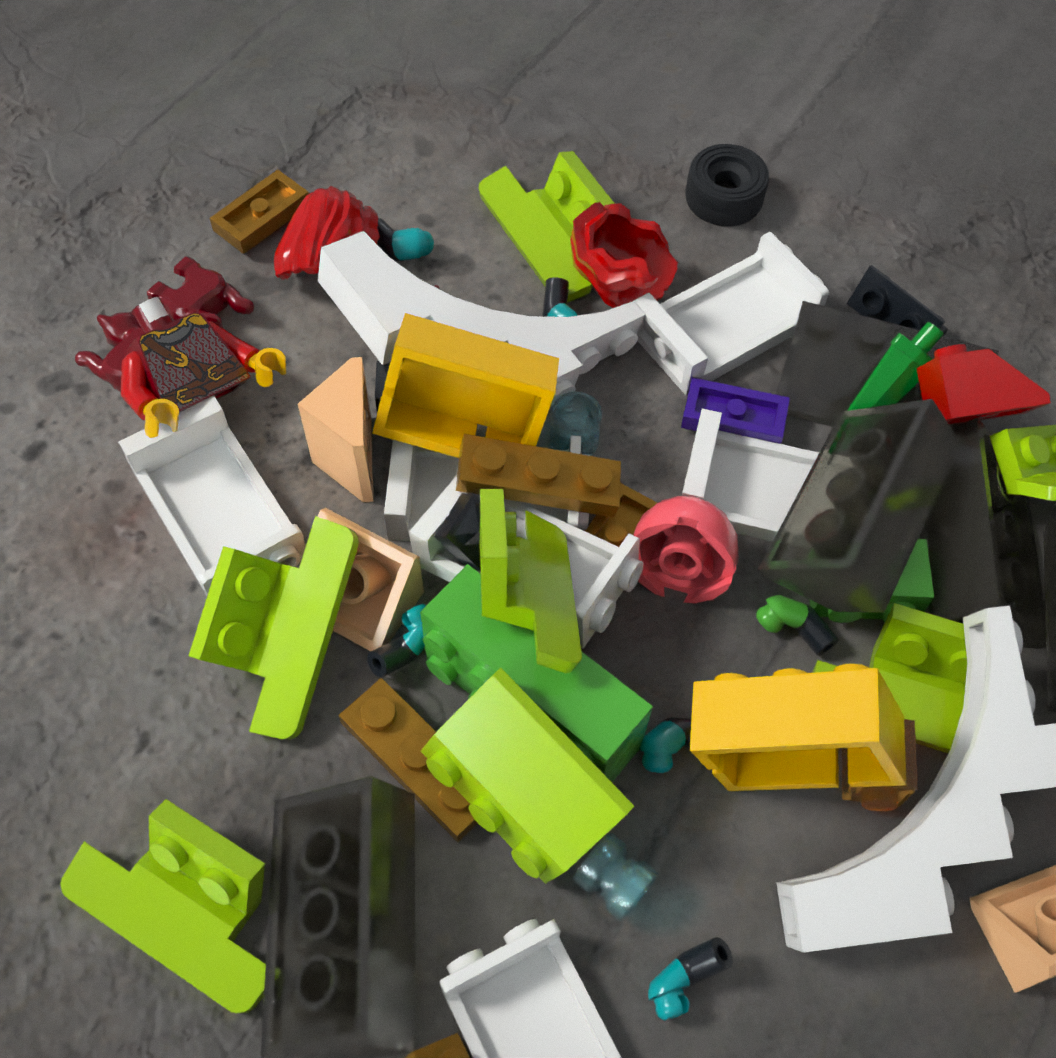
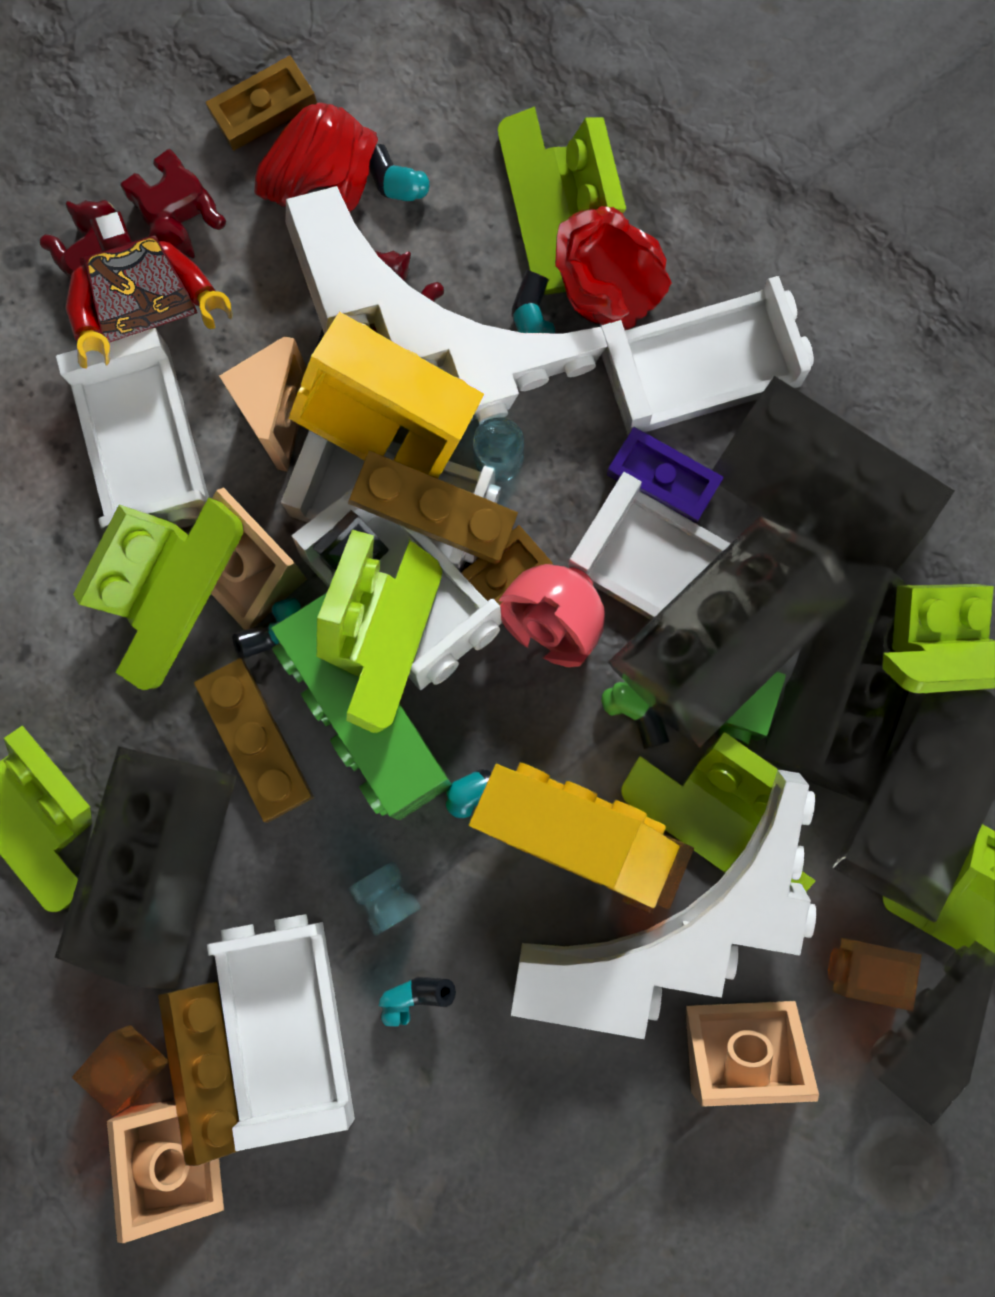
camera: 25 degrees right, 20 degrees up
(524, 778) = (320, 802): lime slope -> none
(731, 165) = (770, 165): black tyre -> none
(886, 301) = (875, 393): black hinge -> none
(897, 369) = (832, 490): green bar -> none
(977, 385) = (897, 536): red slope -> none

